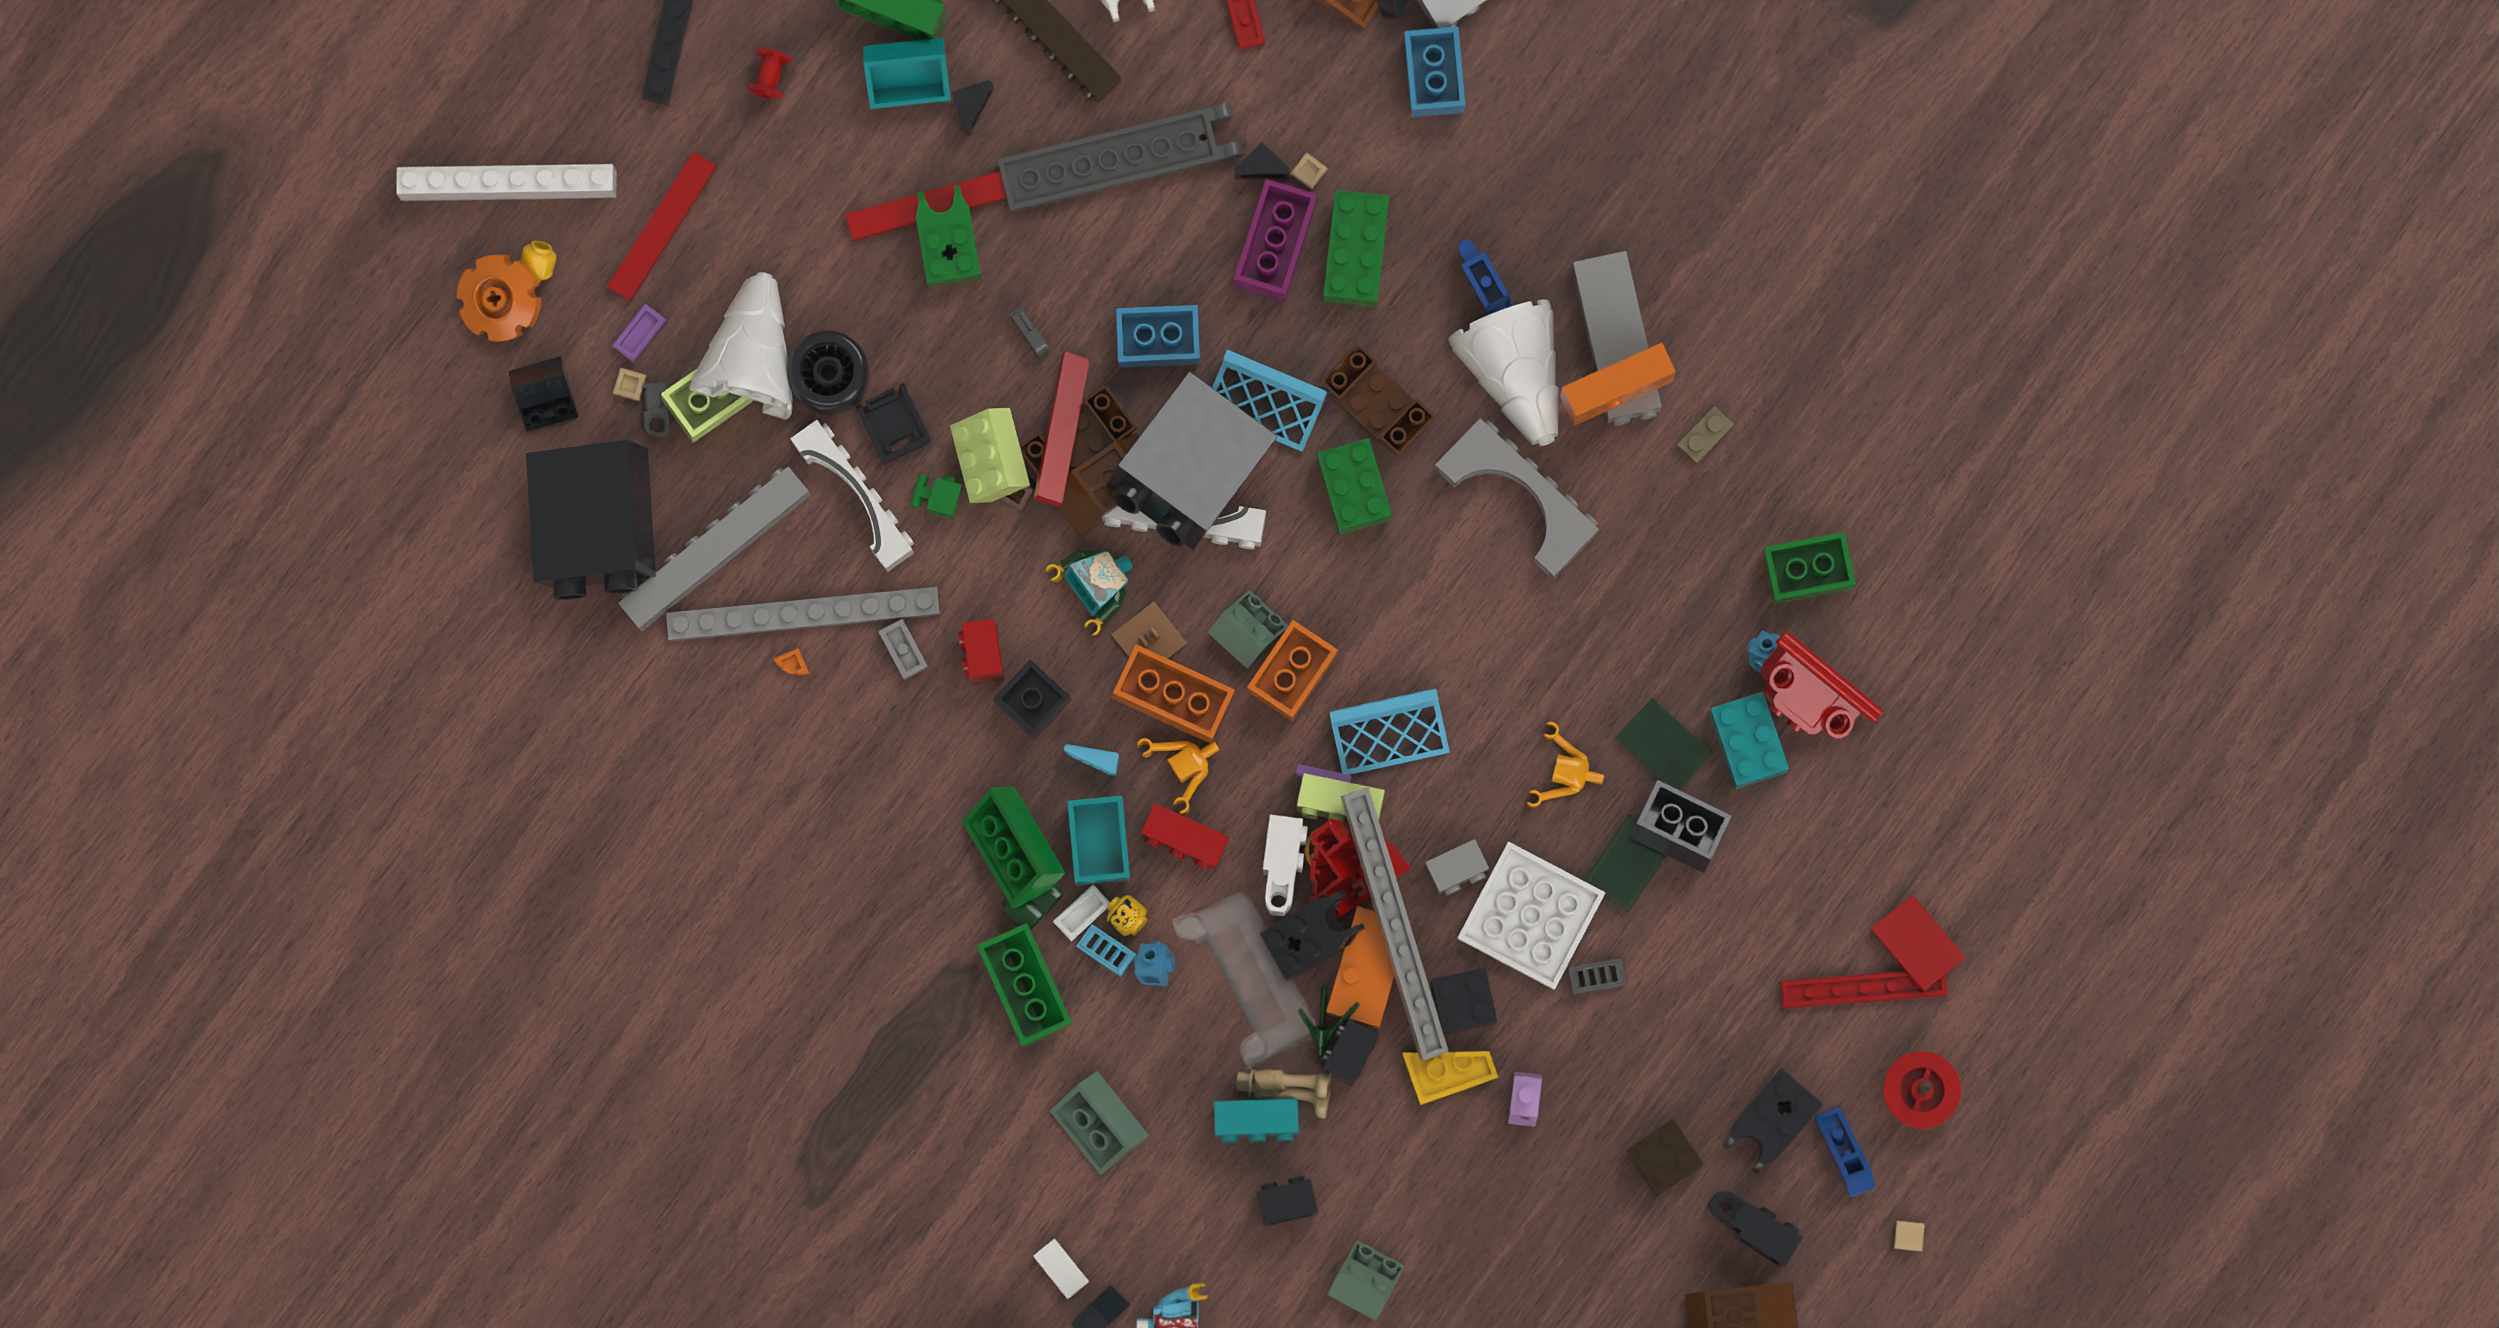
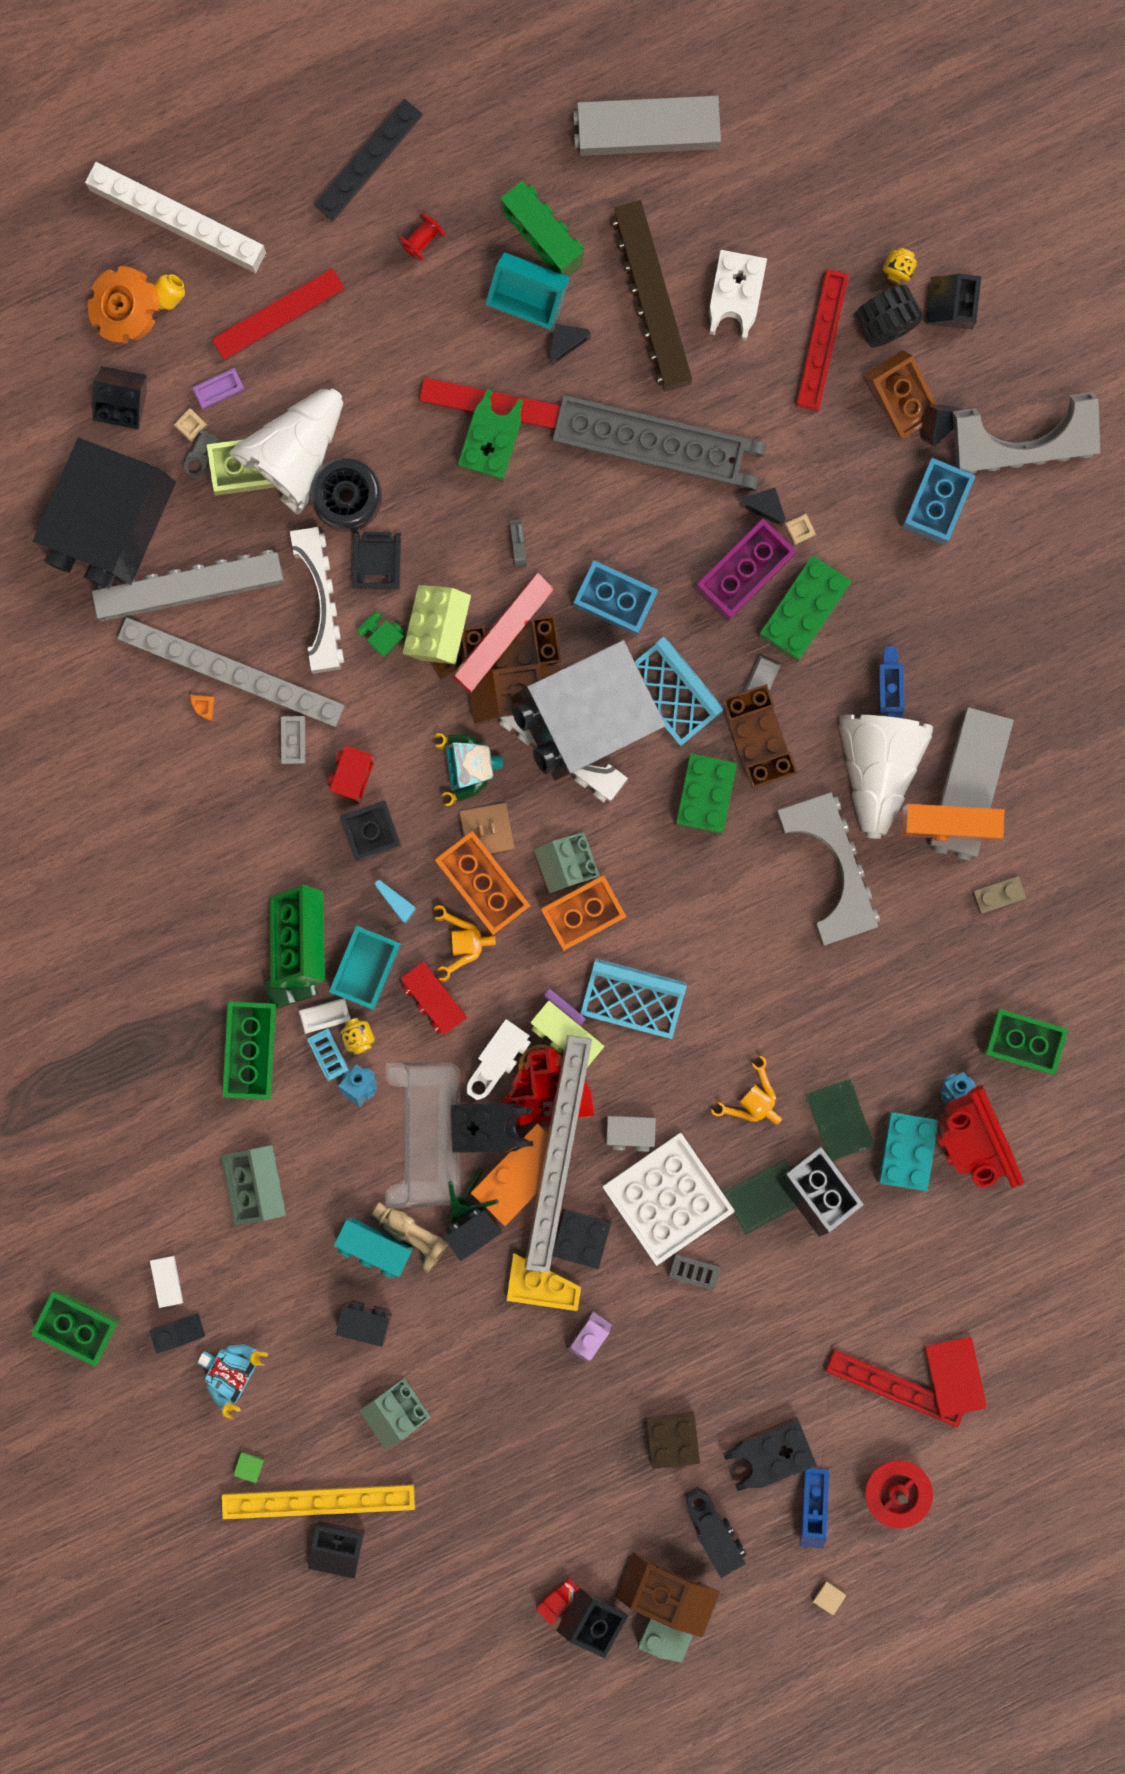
camera: 25 degrees right, 5 degrees up
(1347, 333) = (763, 673): none -> light grey tile

